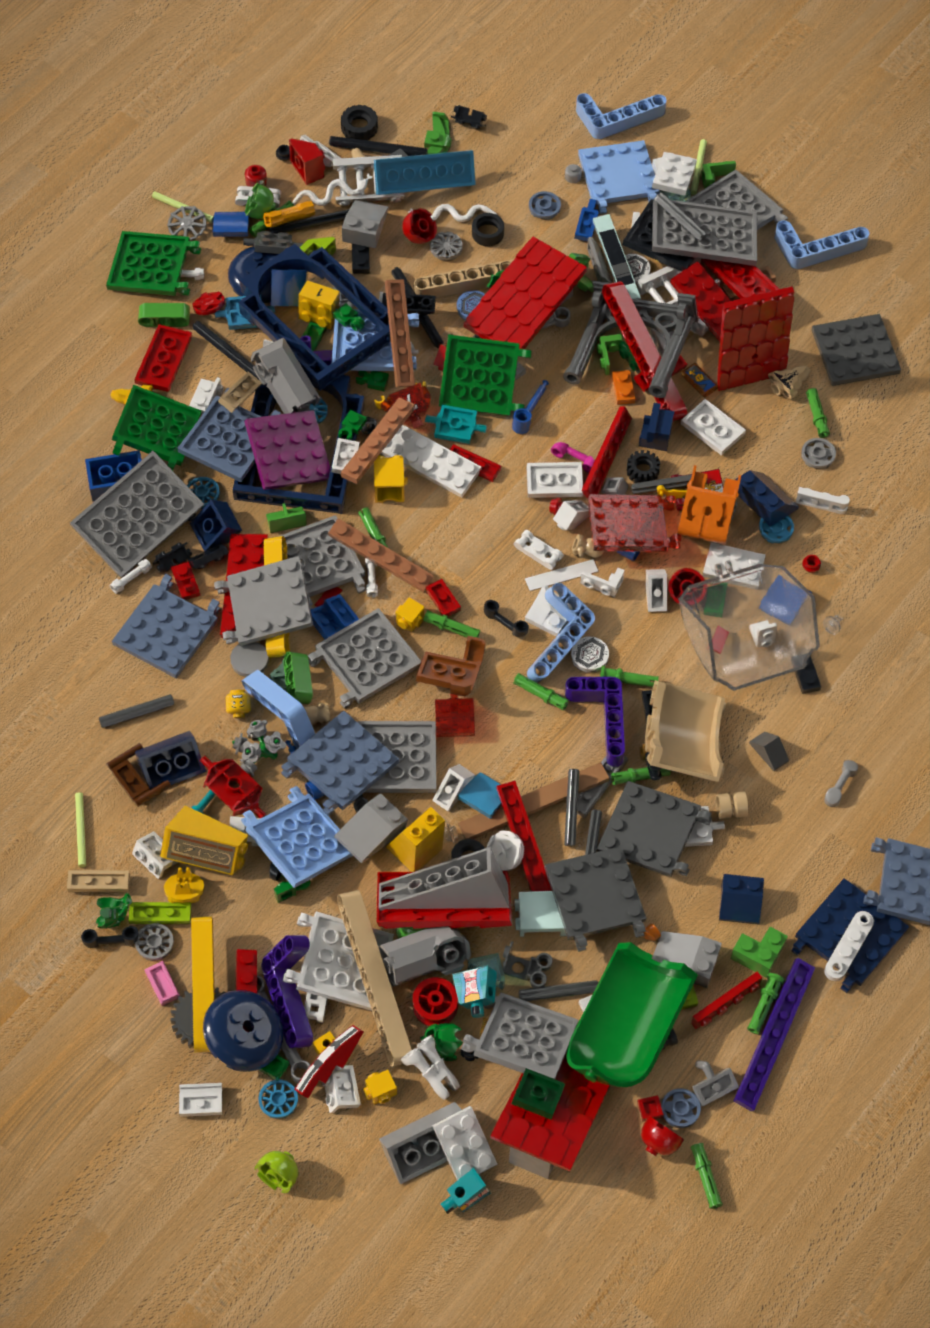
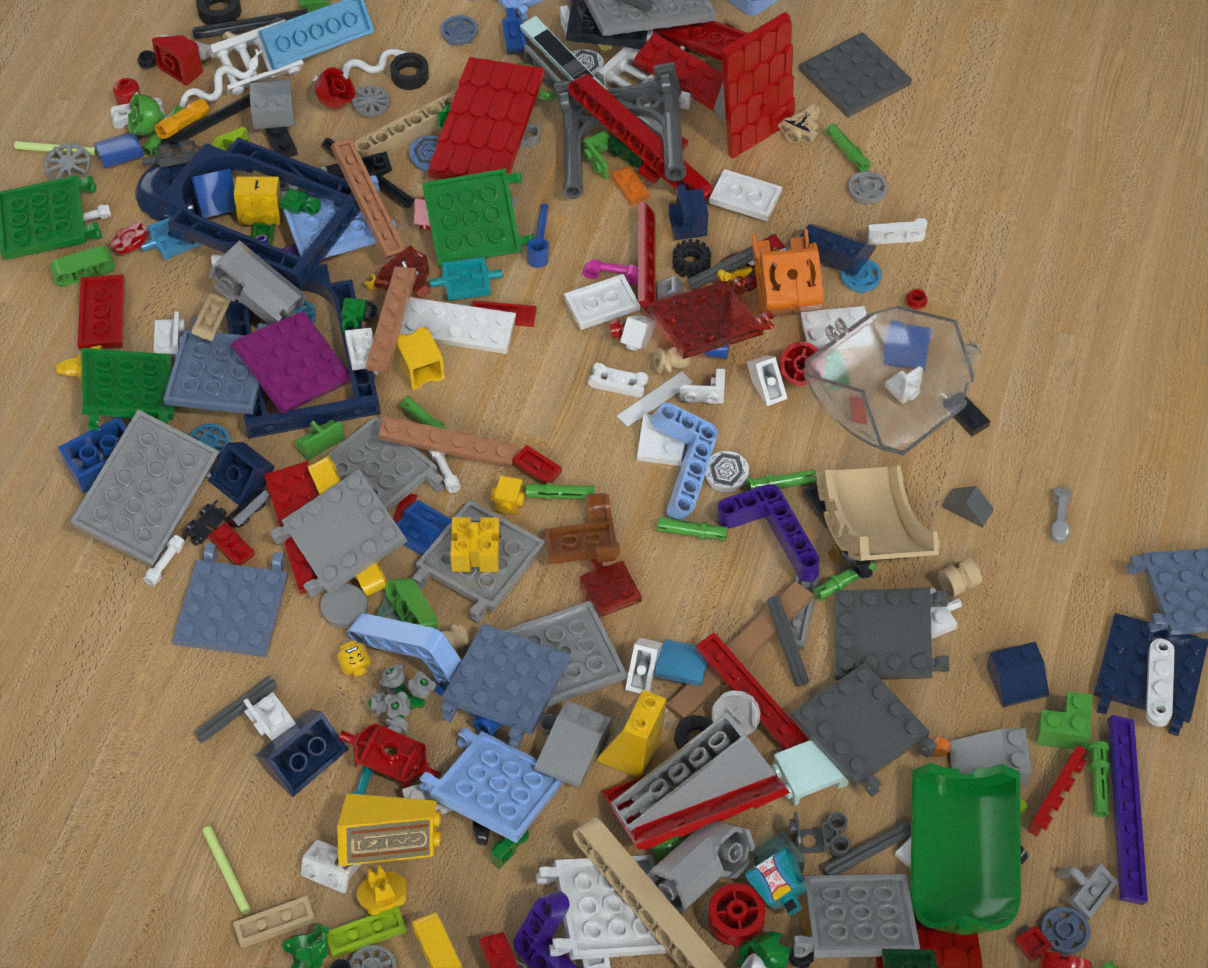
camera: 20 degrees left, 5 degrees down
(131, 780) = (265, 791): reddish brown plate -> none
(156, 725) = (270, 716): none -> white bracket
(224, 347) = (168, 280): black axle -> none
(364, 646) = (475, 544): none -> yellow brick
(376, 380) = (354, 261): green plate -> none
(518, 628) = (596, 460): black bar -> none
(593, 832) = (822, 660): dark grey axle -> none
(699, 380) = (708, 153): tile -> none

